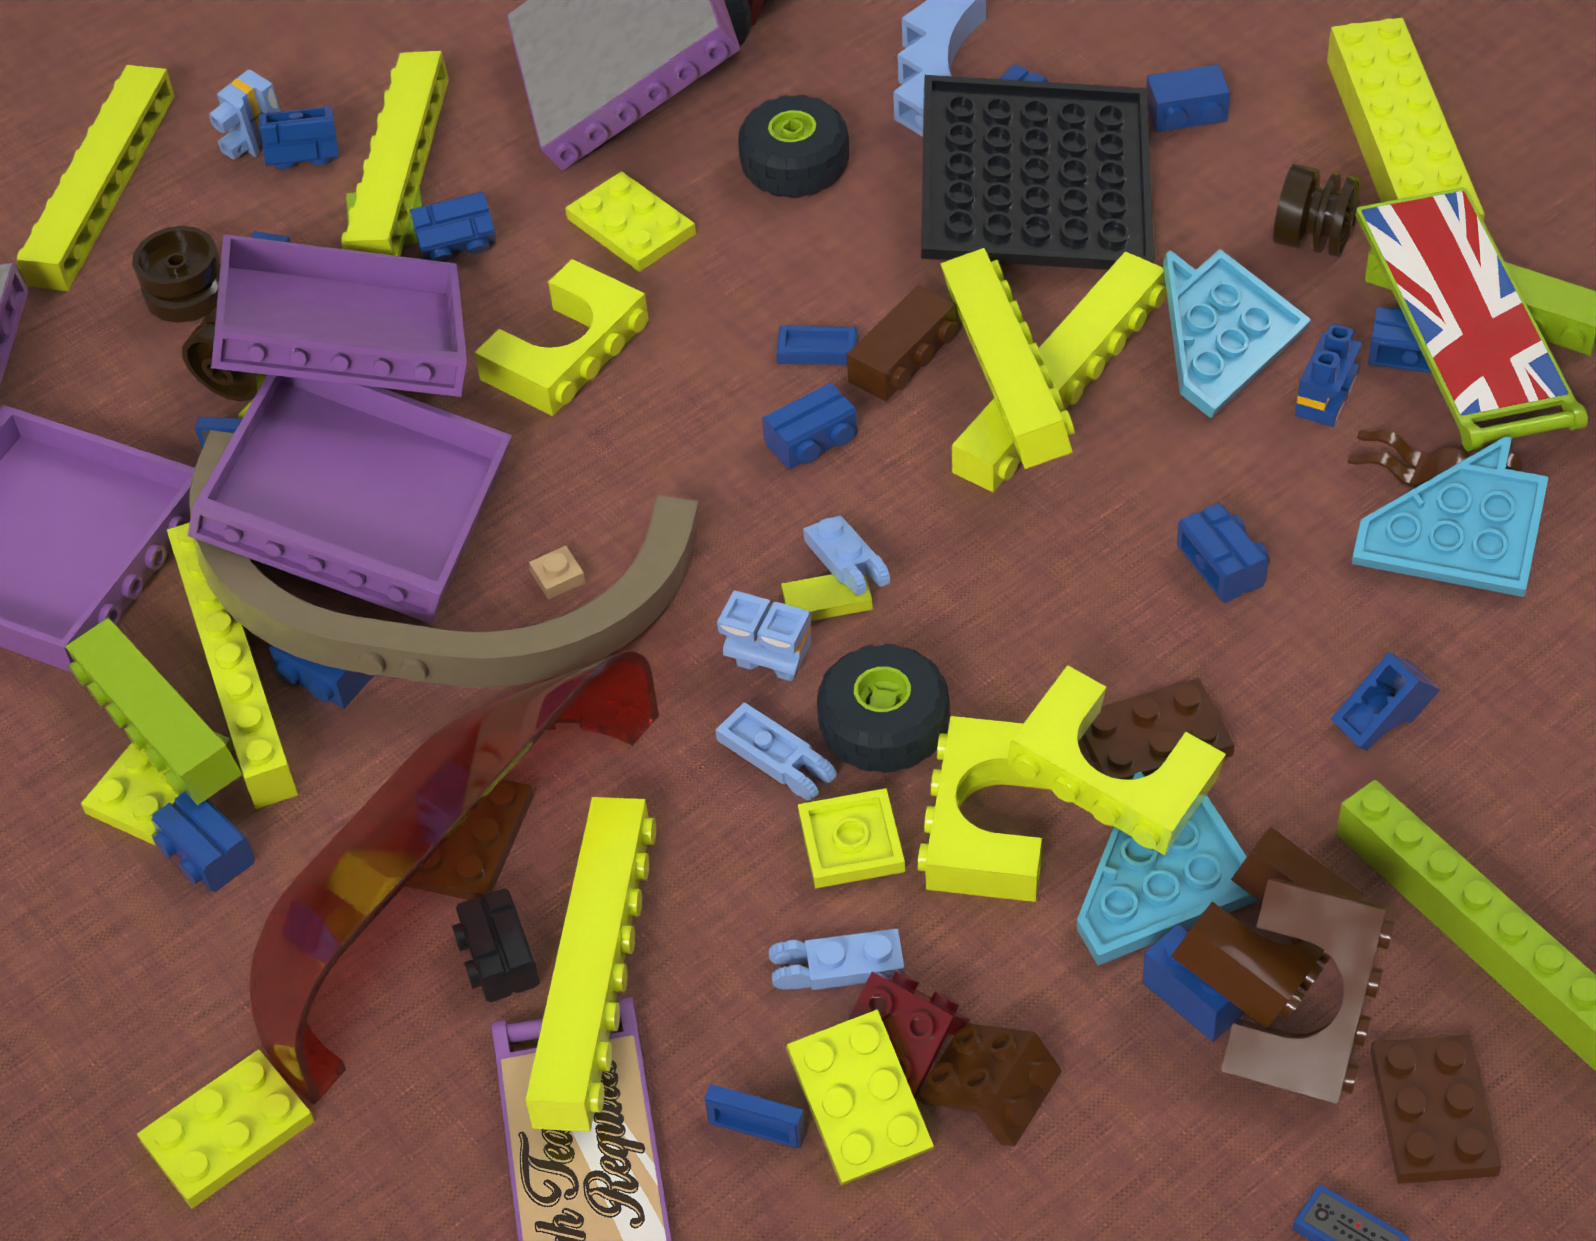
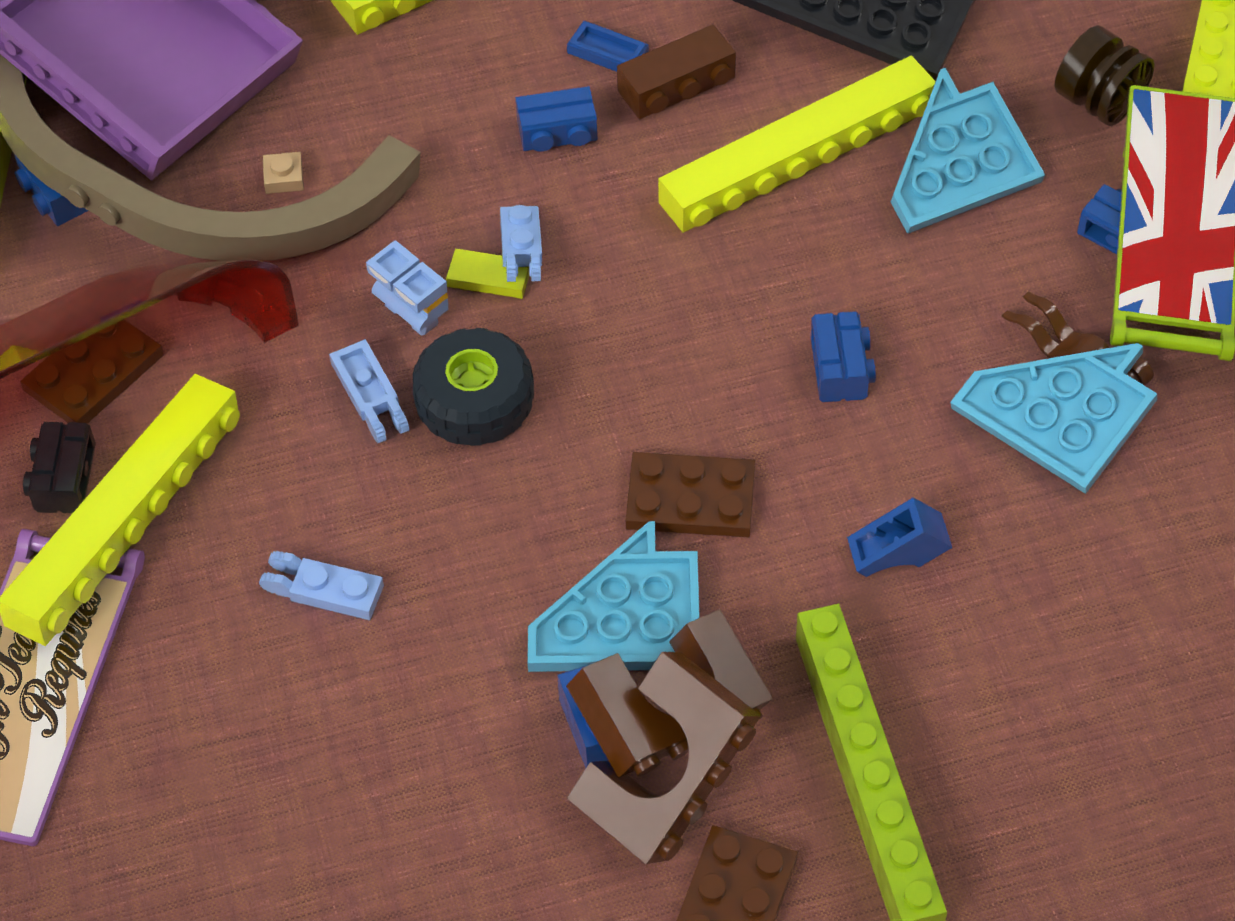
camera: 20 degrees right, 5 degrees up
(755, 1116) = (181, 685): blue tile -> none
(851, 838) = (388, 487): neon yellow plate -> none
(859, 1097) = (268, 702): neon yellow plate -> none
(912, 1020) = (332, 660): dark red bracket -> none
(958, 853) = (522, 457): neon yellow arch -> none
(996, 1074) = (386, 731): reddish brown bracket -> none
(1009, 358) = (744, 117): neon yellow brick -> none
(1145, 808) = (634, 555): neon yellow arch -> none
(1328, 376) = (1026, 233): blue hips -> none

